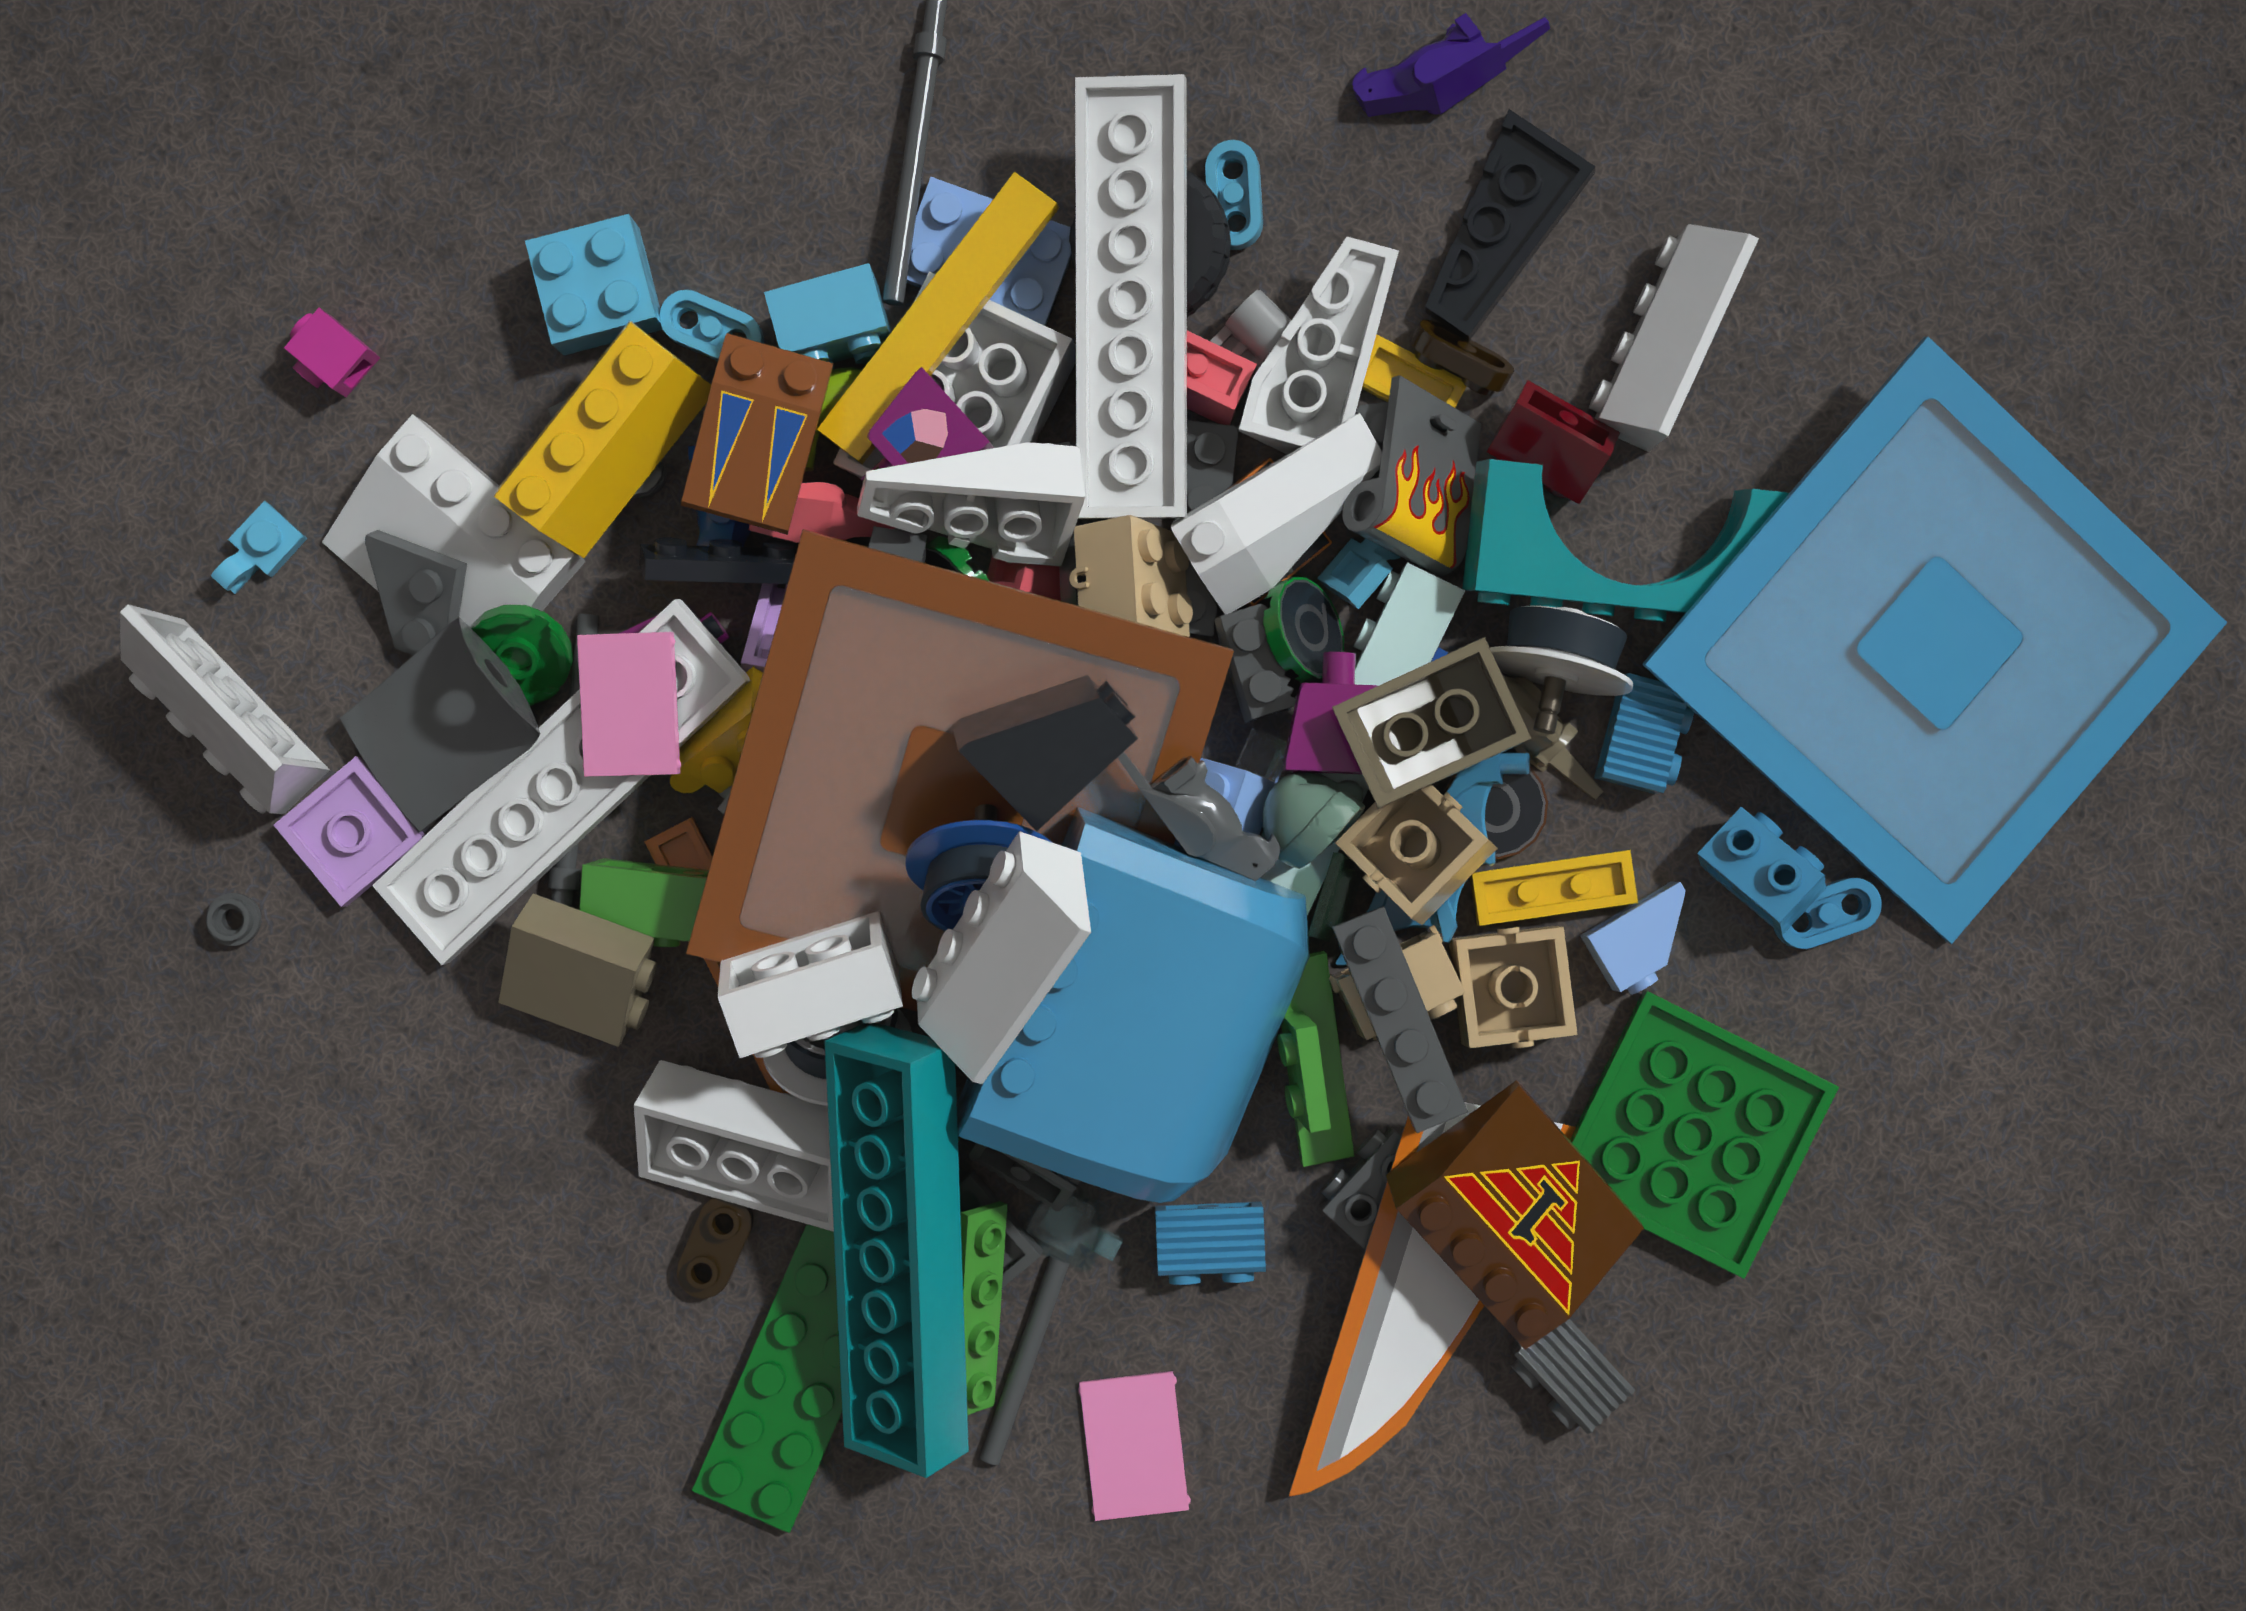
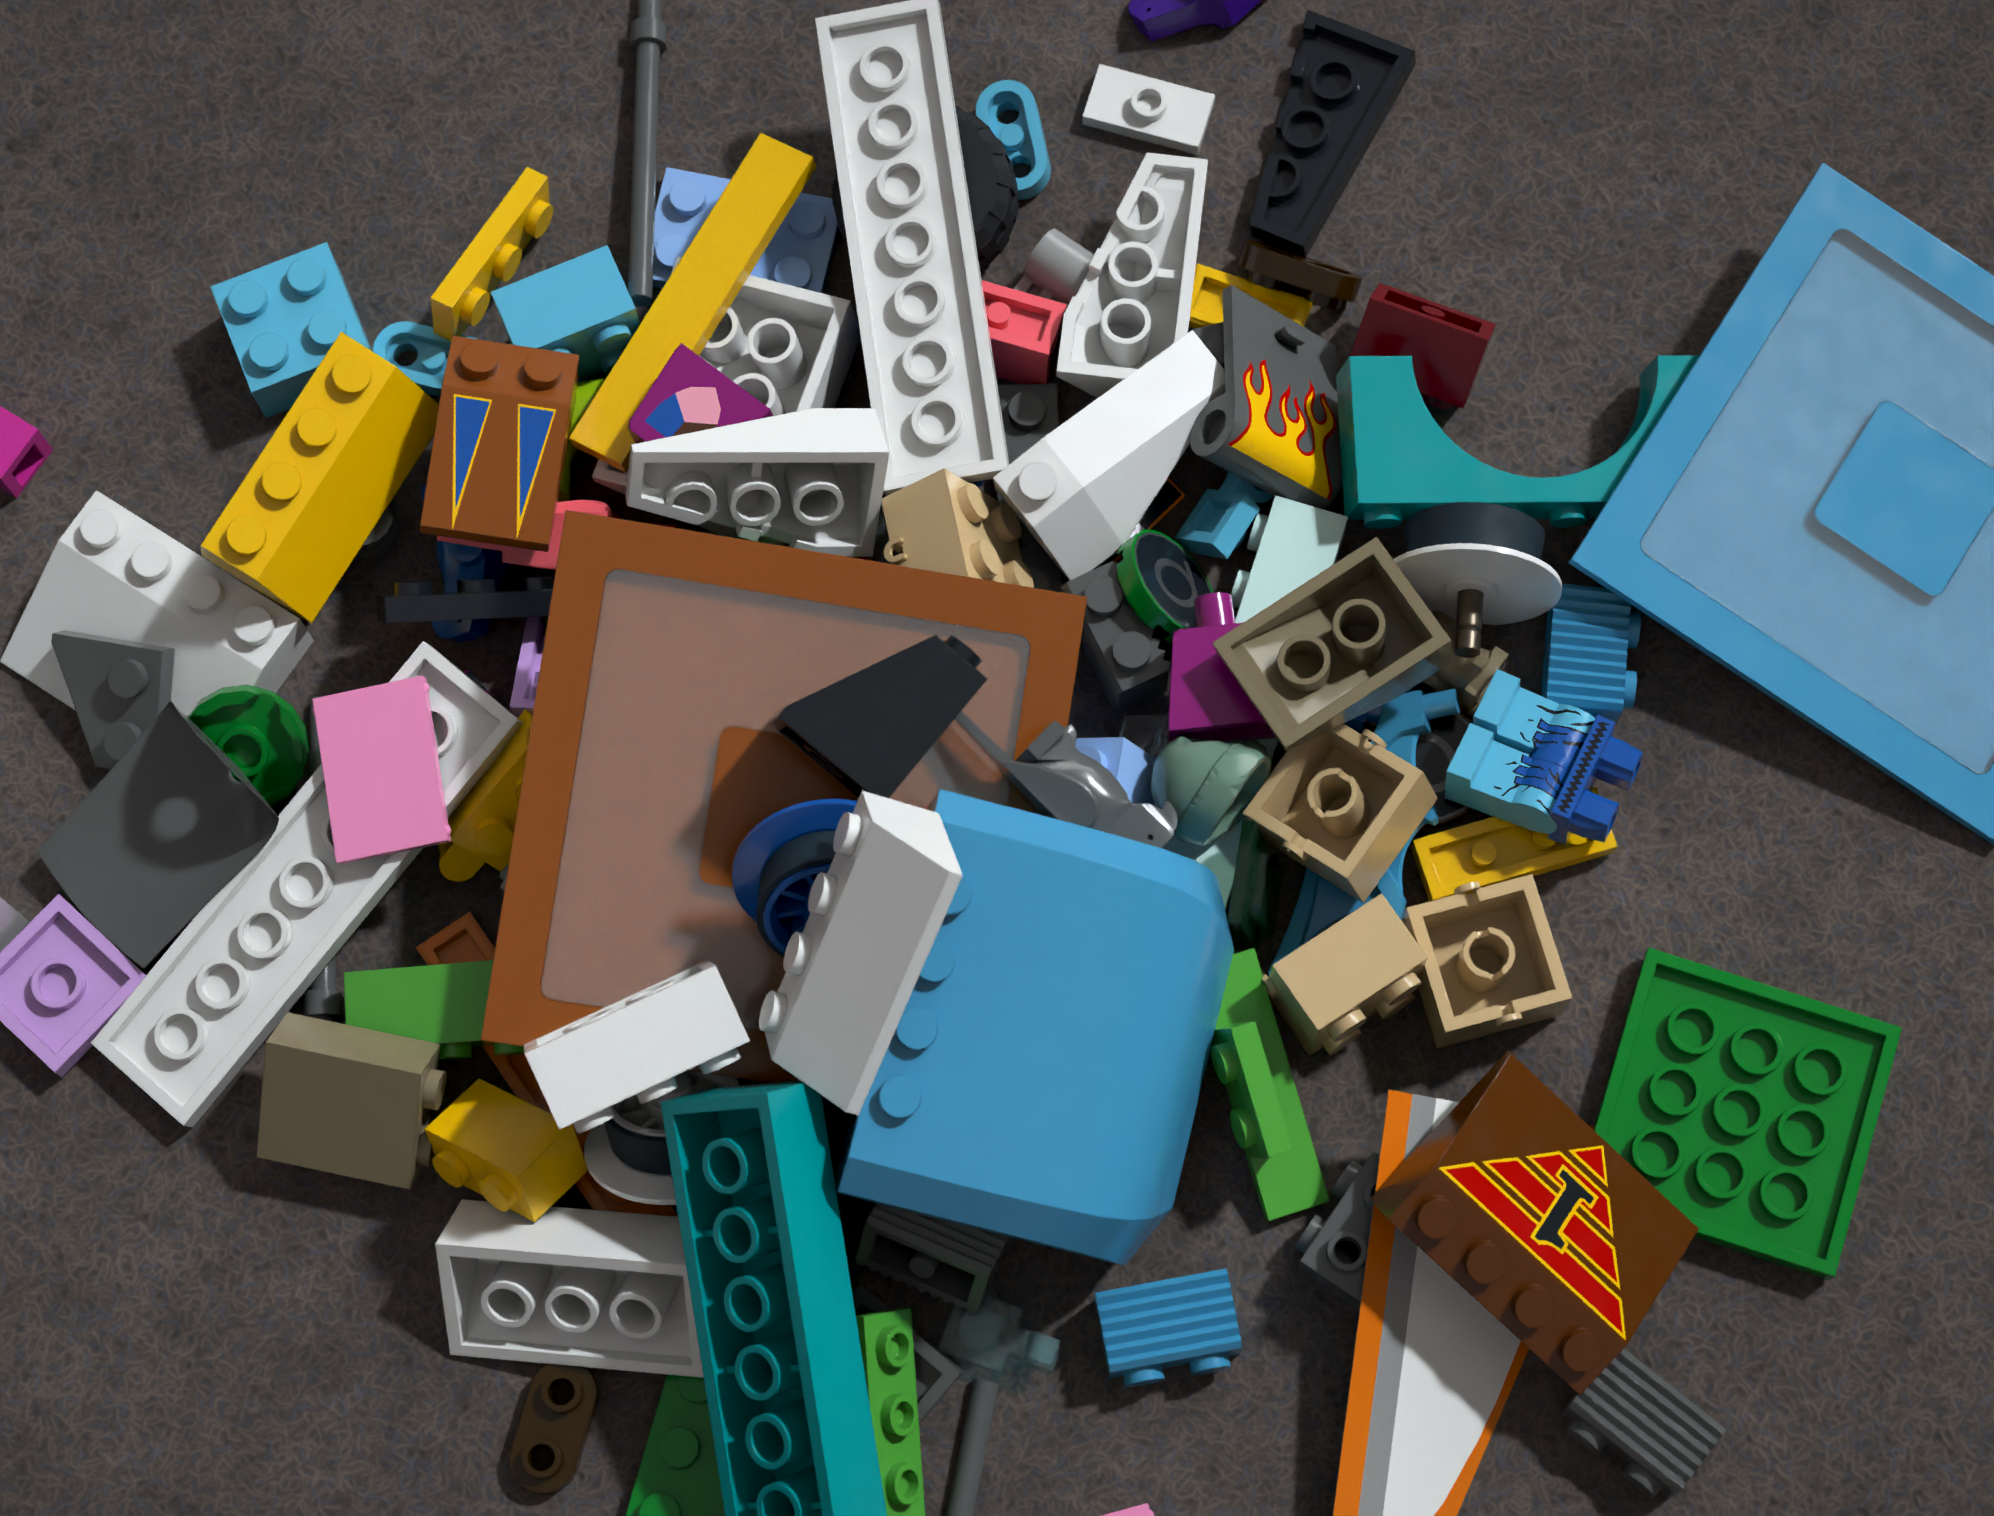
camera: 10 degrees left, 15 degrees down
(690, 1026) = (505, 1150): none -> yellow brick
(771, 243) = (492, 255): none -> yellow plate
(1355, 181) = (1148, 109): none -> white plate
(1399, 1019) = (1354, 997): dark grey plate -> none
(1586, 827) = (1539, 763): none -> hips
(1637, 939) = (1623, 890): light blue slope -> none
(1672, 333) = (1533, 210): white slope -> none
(1763, 868) = (1757, 783): dark azure brick -> none
(1829, 920) = (1842, 831): dark azure plate -> none

